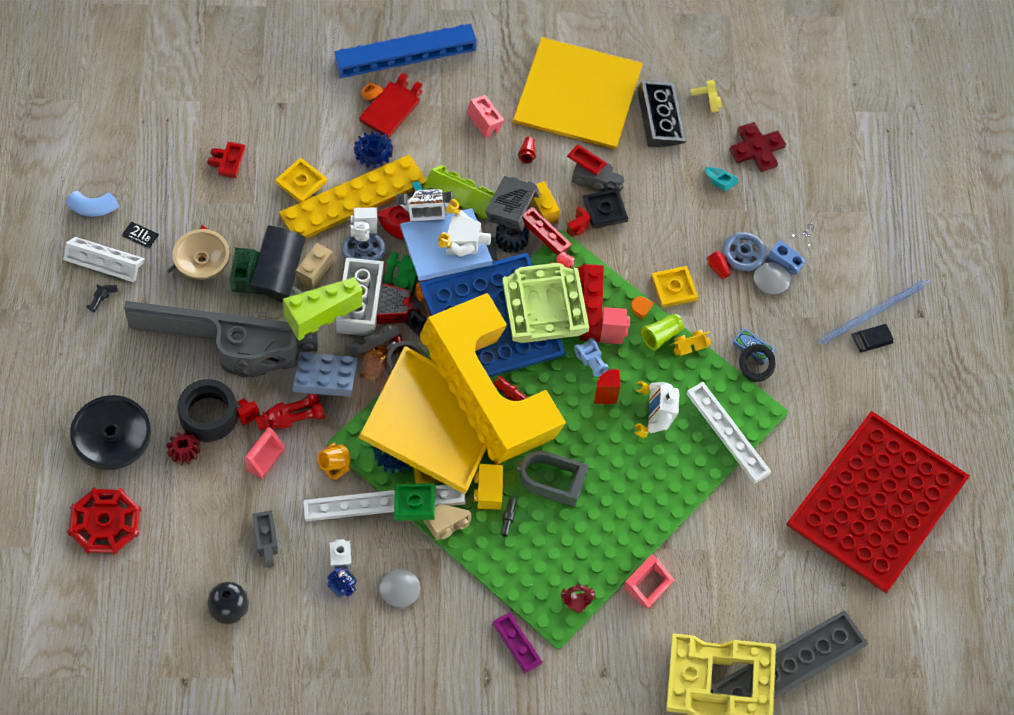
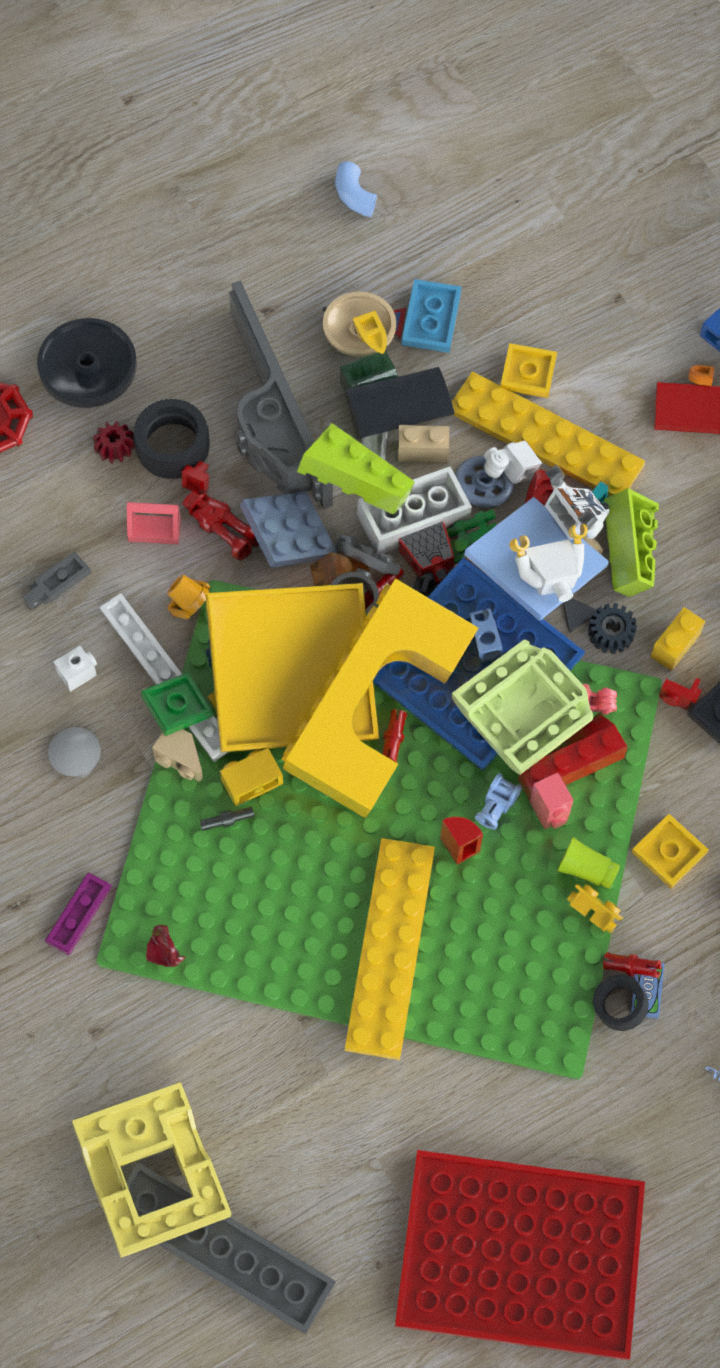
camera: 65 degrees right, 5 degrees up
(100, 294) = (252, 262): black piece -> none
(102, 258) = (293, 237): white fence -> none
(140, 234) = (353, 258): black sticker -> none
(217, 247) = (371, 331): none -> yellow plate
(221, 212) = (431, 316): none -> dark azure plate
(230, 161) = (505, 288): red hinge -> none
(342, 582) = (43, 686): clear blue head -> none
(373, 149) = (623, 411): clear blue gear -> none
(475, 291) = (487, 636): none -> medium blue leg
(511, 202) = (645, 596): dark grey panel -> none
(545, 231) = (636, 659): plate -> none
(569, 498) = (312, 872): dark grey window -> none
(640, 574) = (240, 1007): coral tile -> none
(641, 306) = (609, 824): orange tile -> none
(651, 469) = (390, 949): none -> yellow plate
(662, 407) = (475, 916): white torso -> none
(728, 433) = (495, 1016): white plate -> none
(737, 344) = (632, 965): none -> red pin

